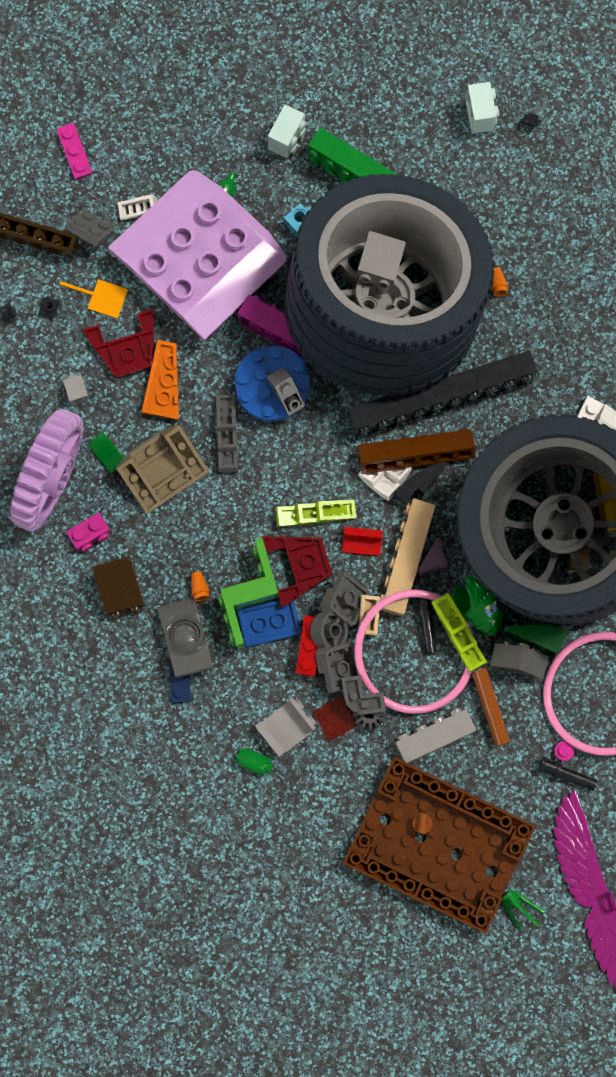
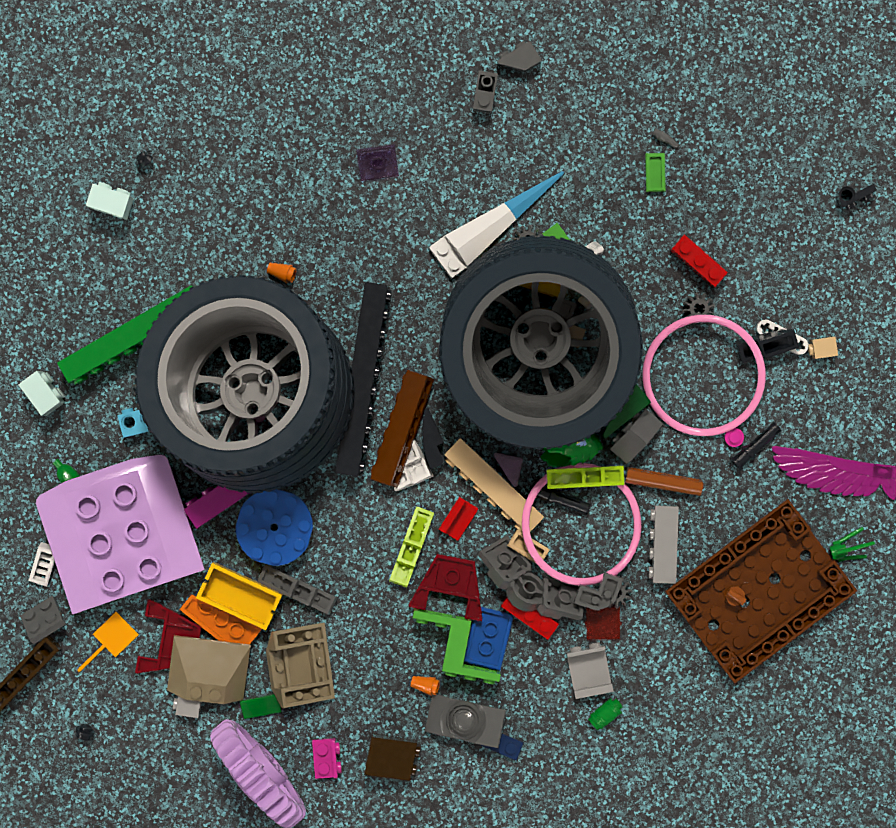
camera: 60 degrees left, 10 degrees up
(44, 310) = (102, 691): black plate -> none
(117, 390) = (208, 670): none -> dark tan slope
(196, 384) = (239, 595): none -> yellow piece
(285, 391) = (290, 521): dark grey slope -> none
(380, 260) = (217, 378): light grey panel -> none

